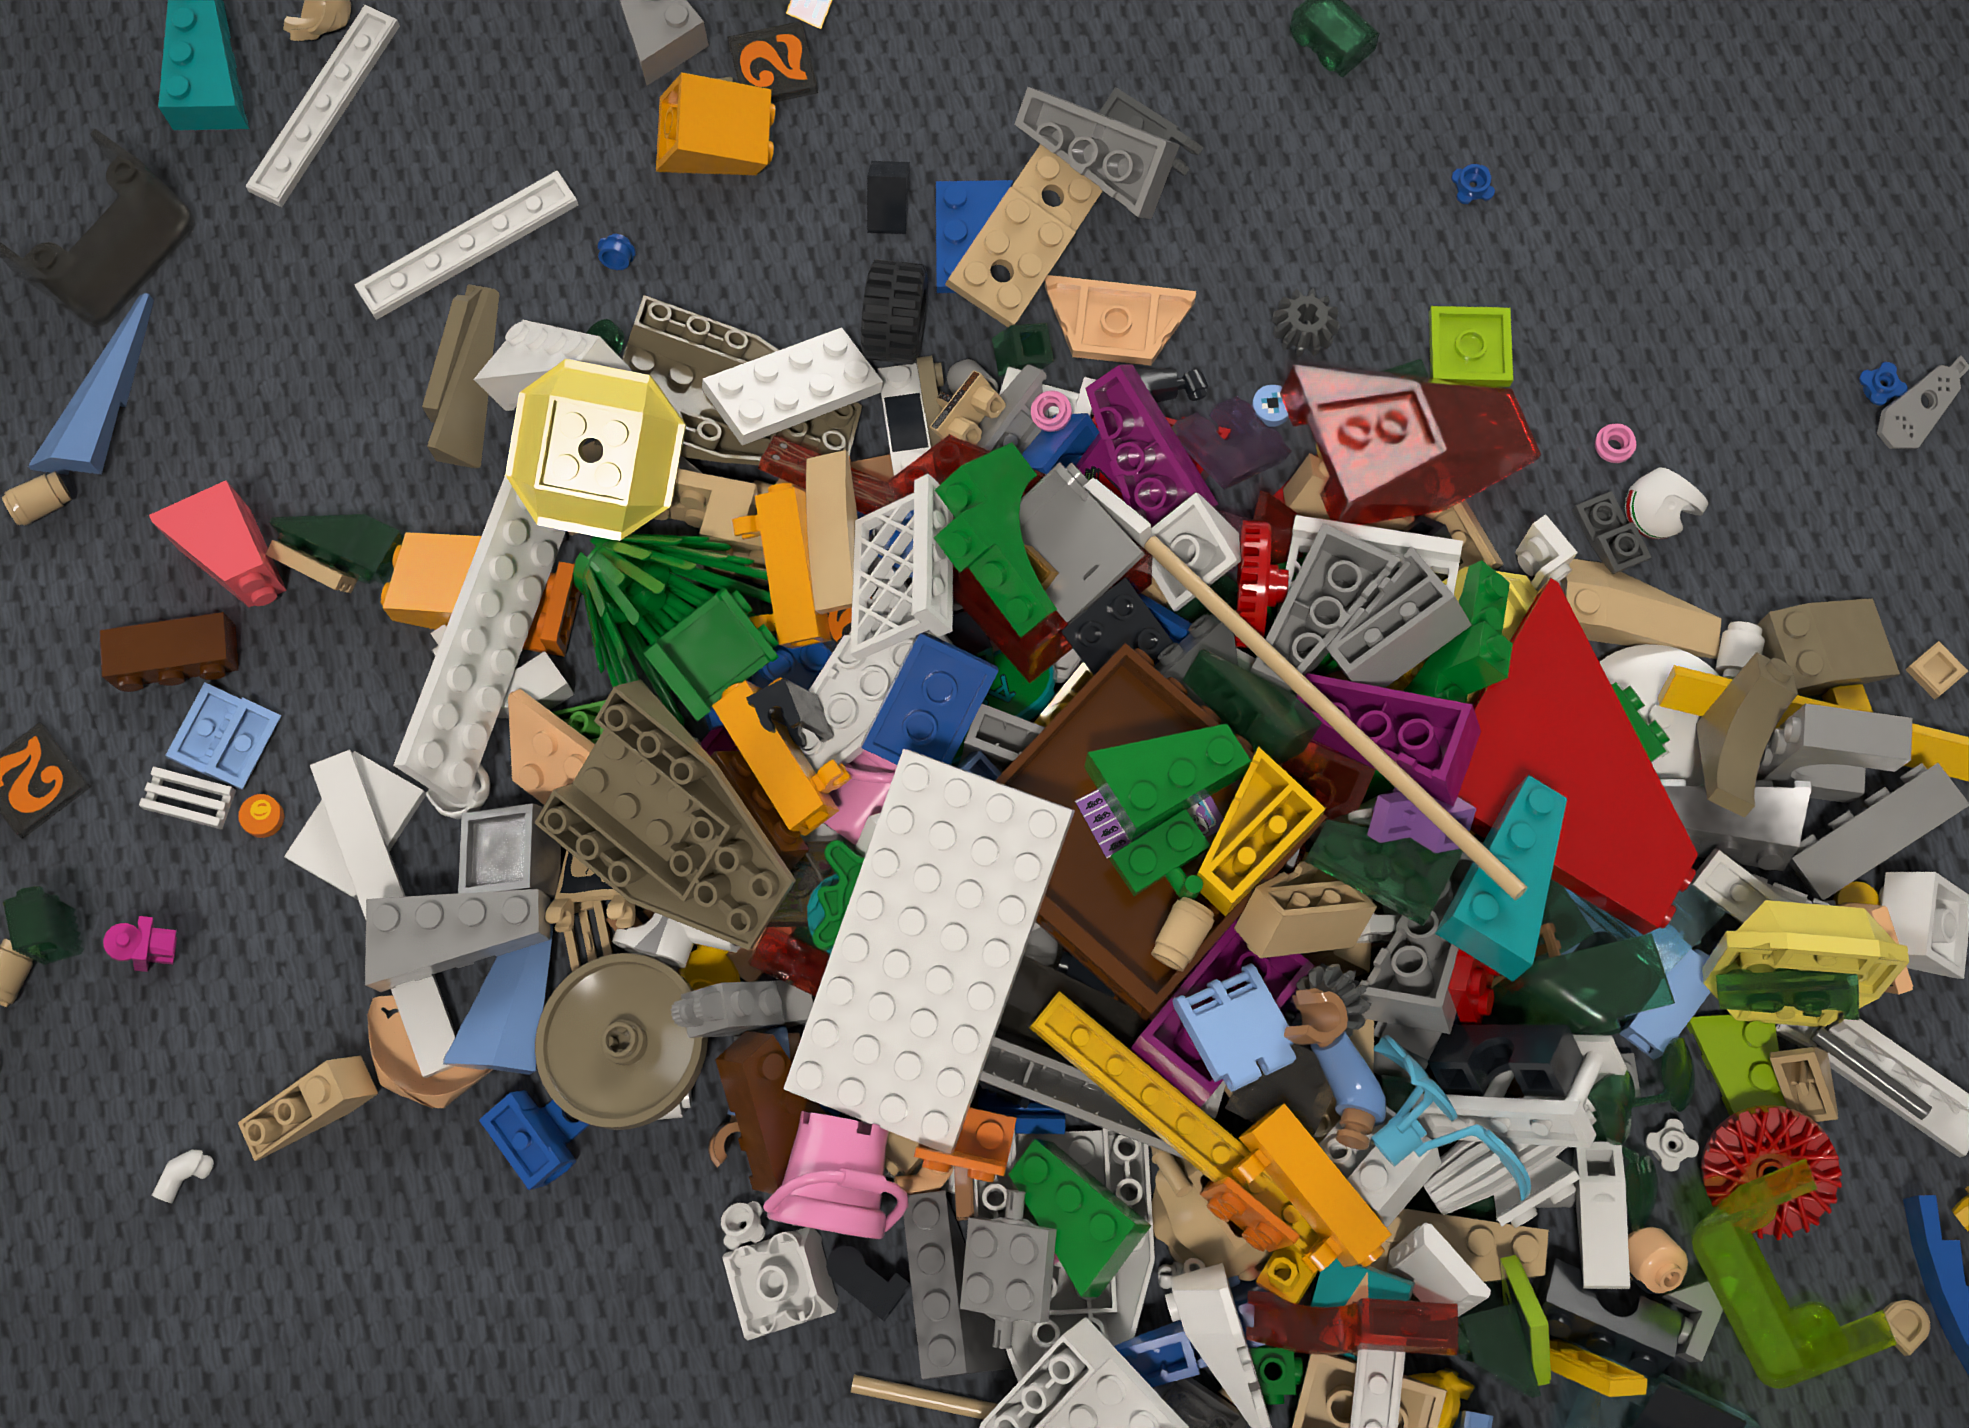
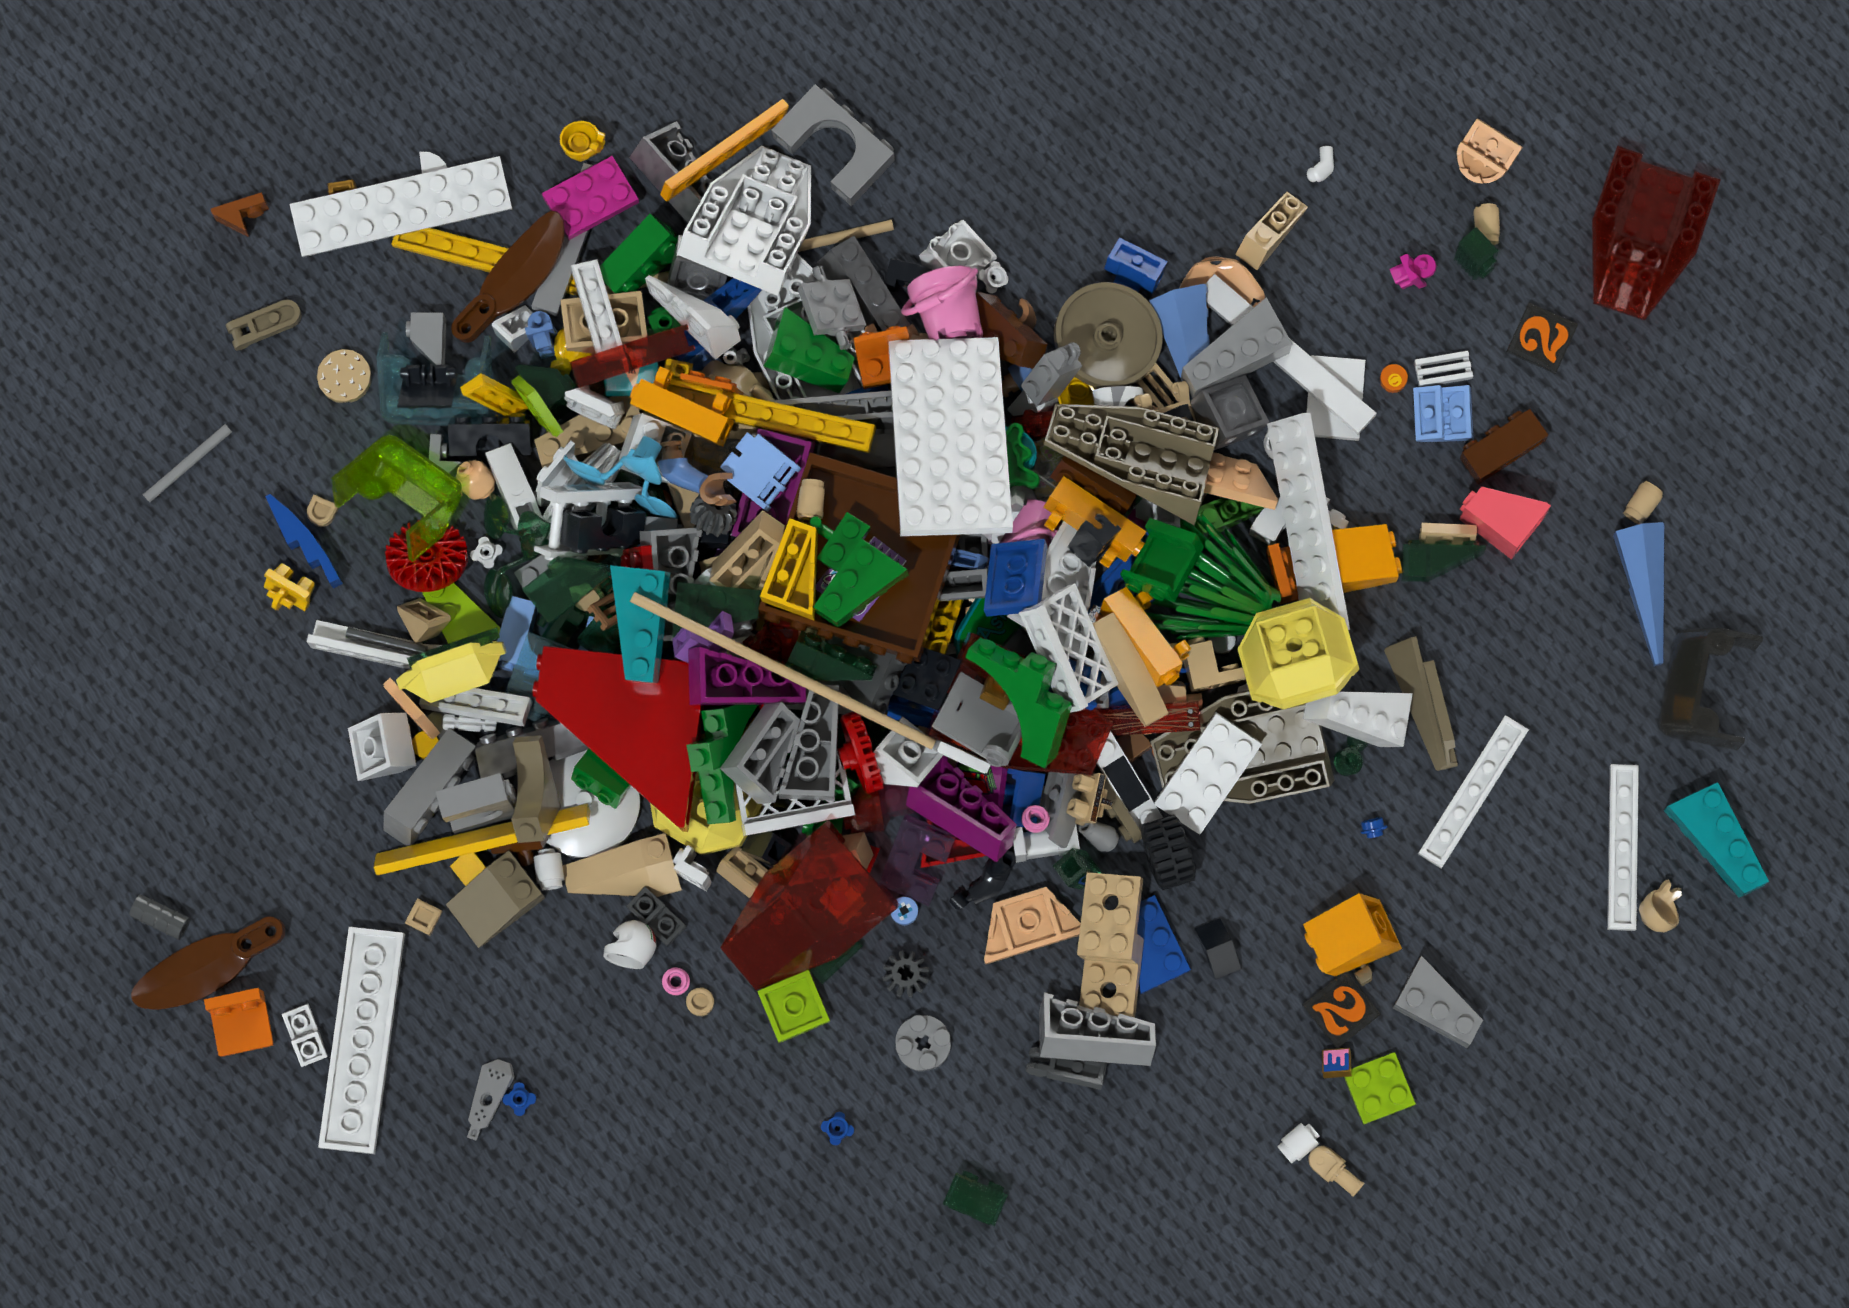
camera: 160 degrees right, 5 degrees up
(1319, 217) = (927, 1058): none -> light grey plate
(1592, 406) = (700, 1001): none -> tan tile

